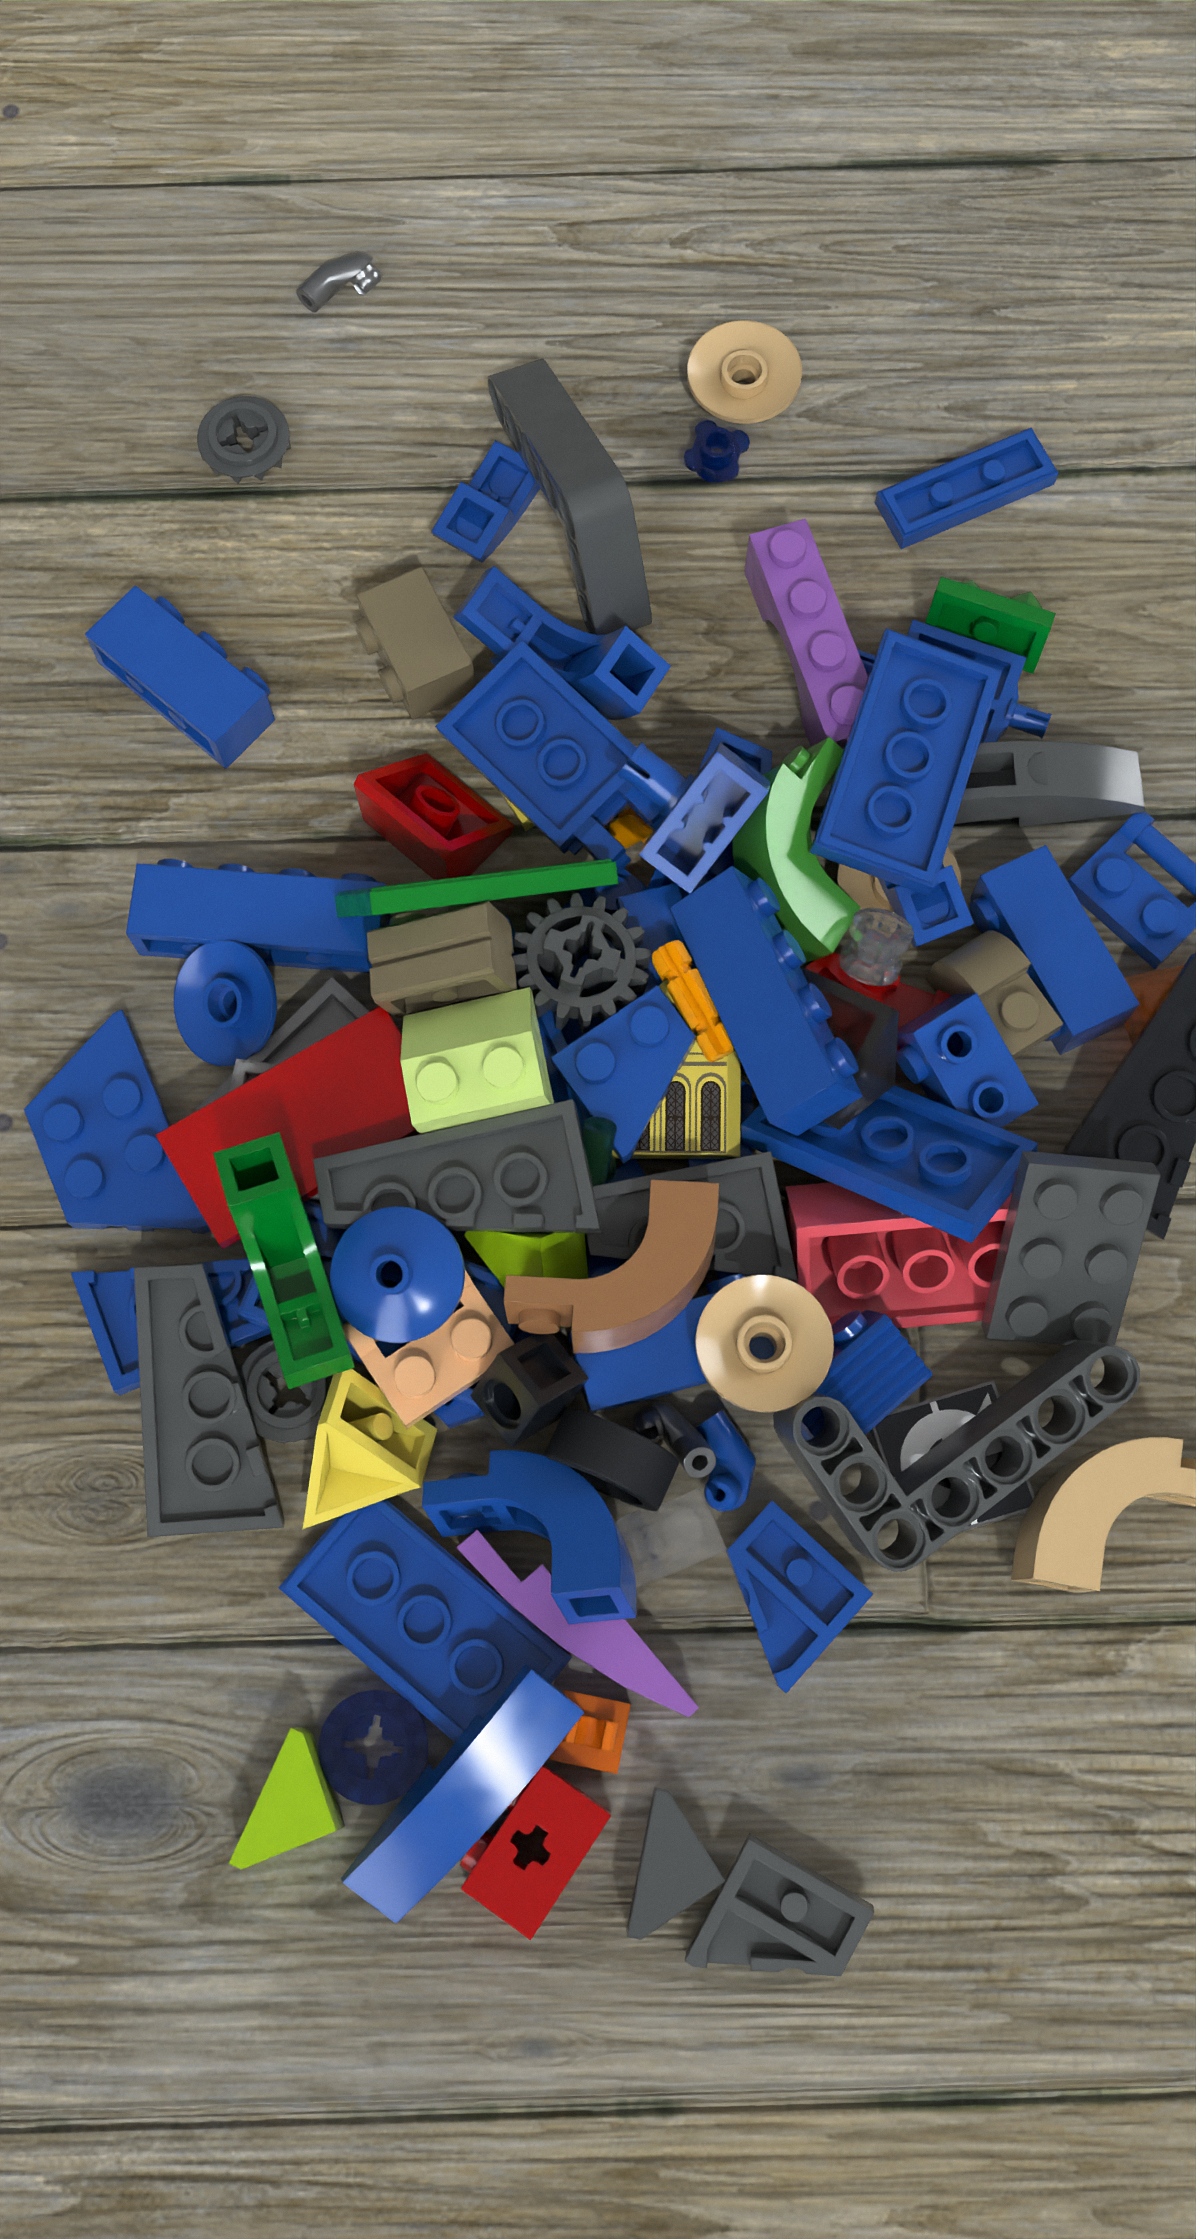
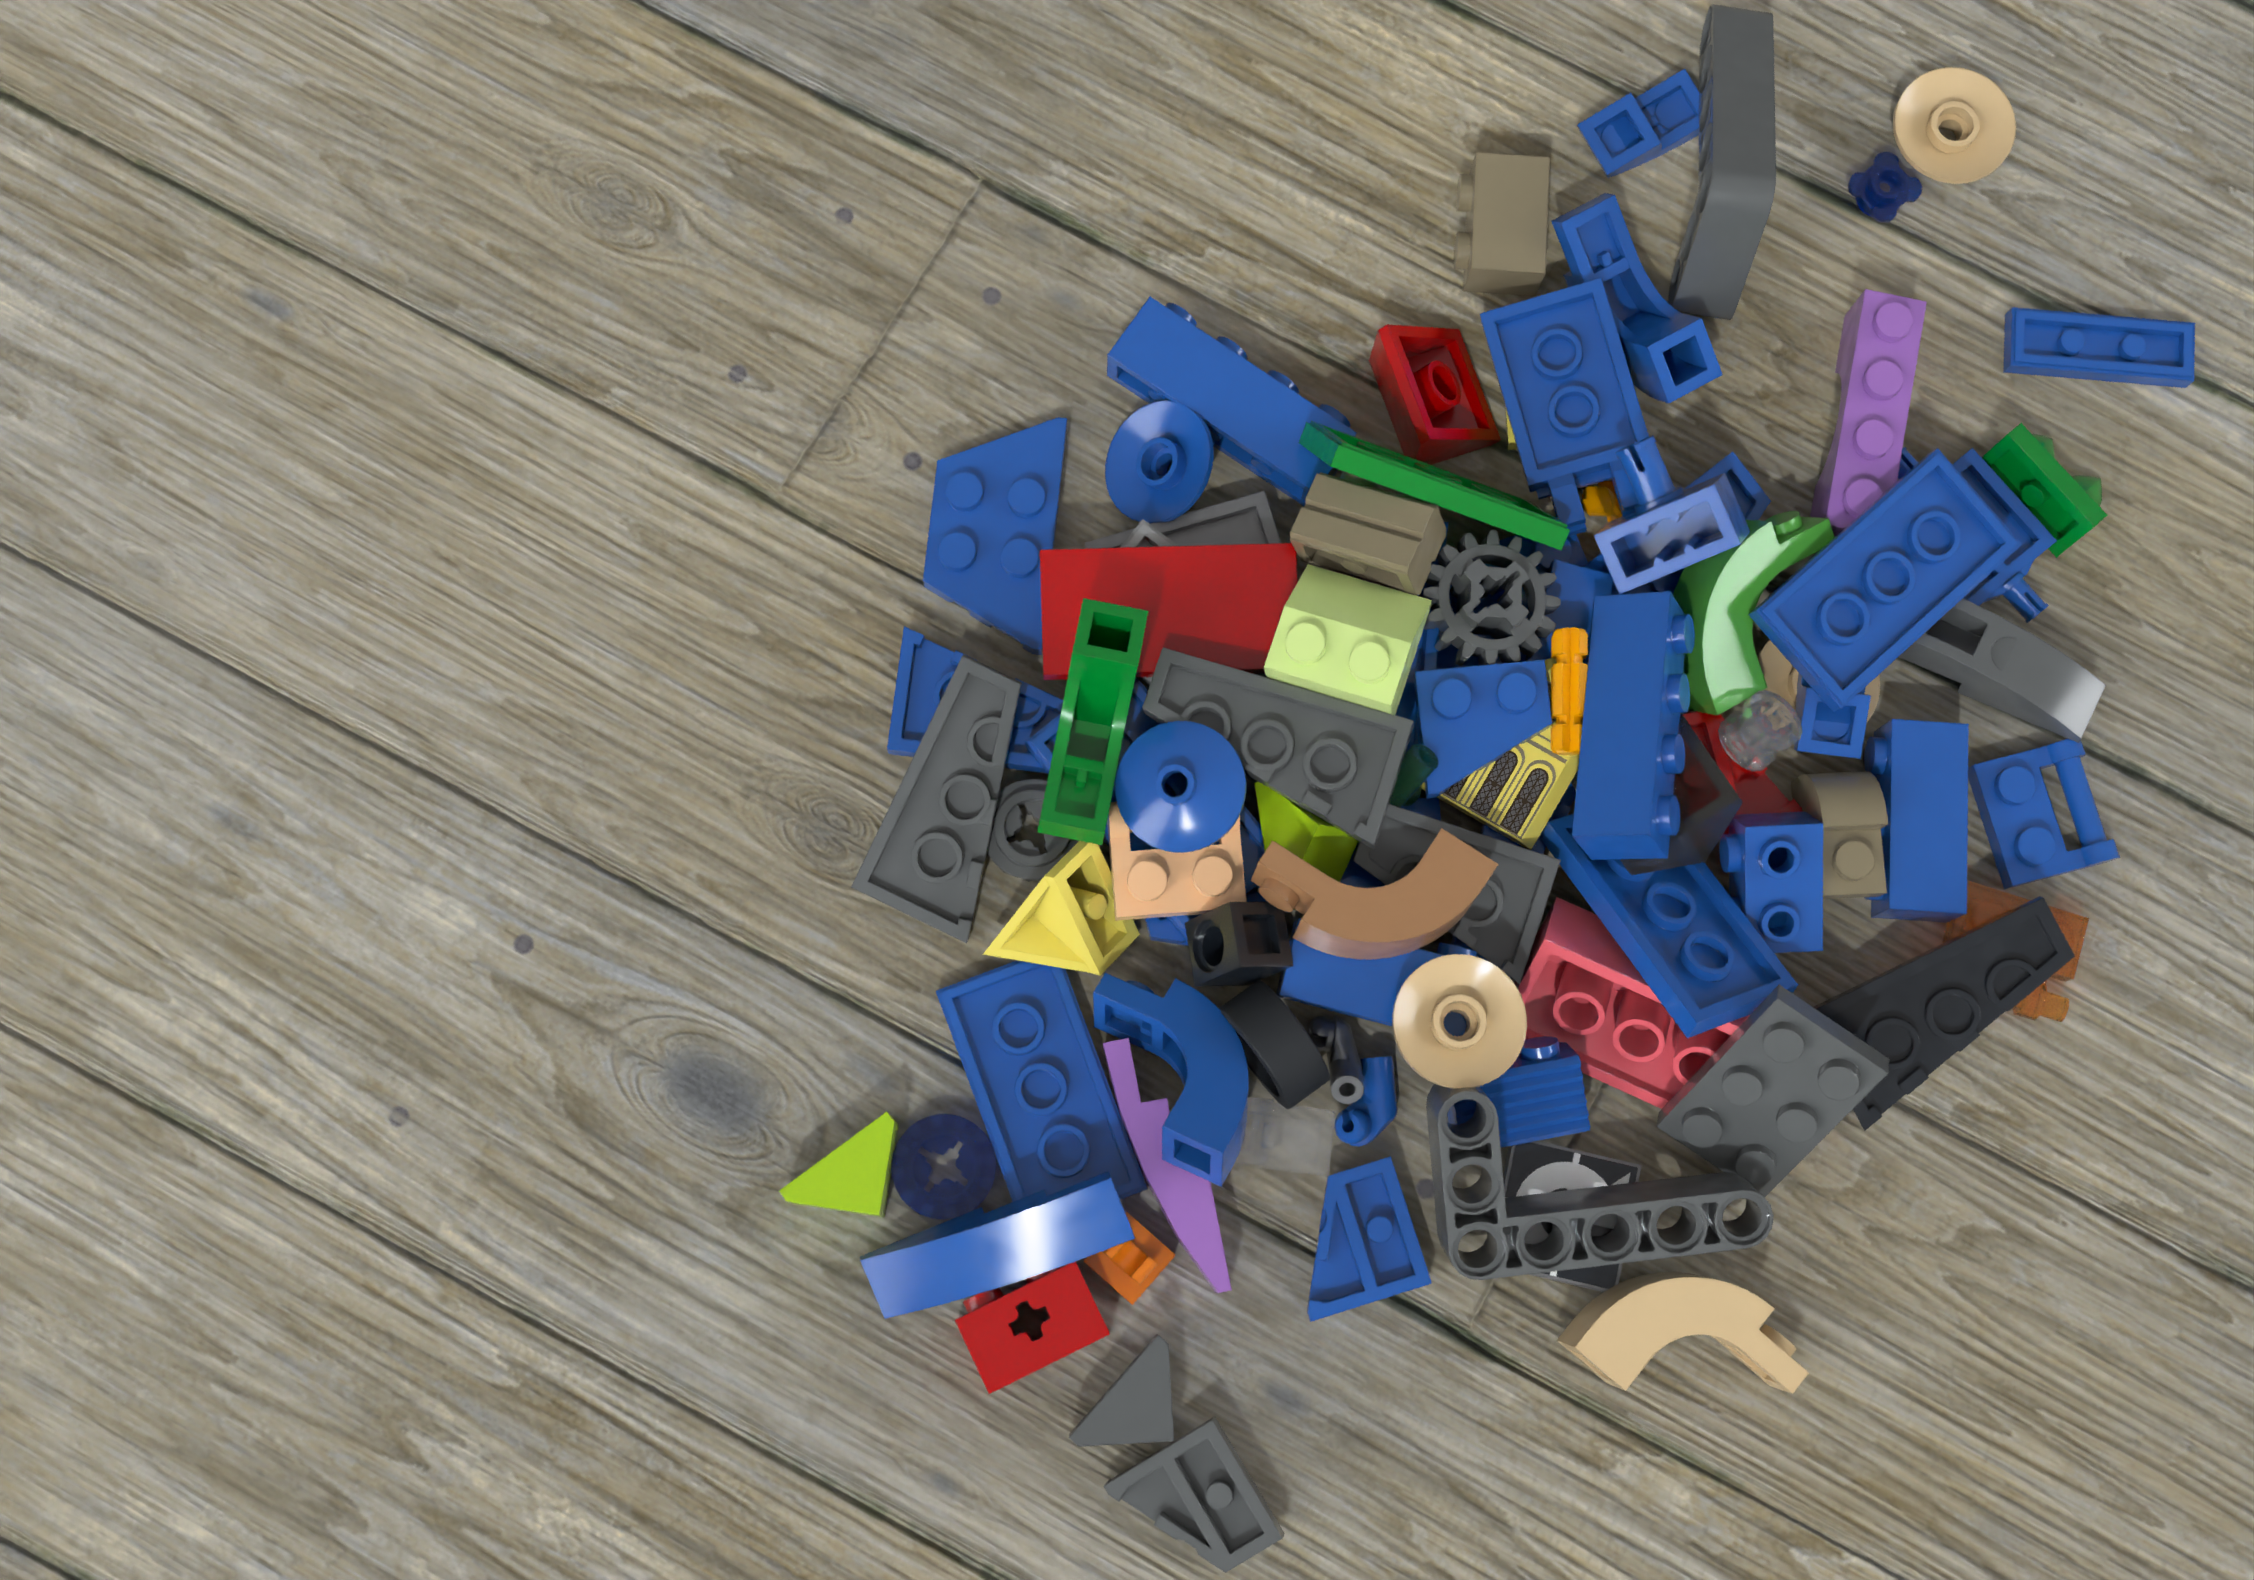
camera: 25 degrees right, 5 degrees up
(182, 675) = (1280, 140): blue brick -> none

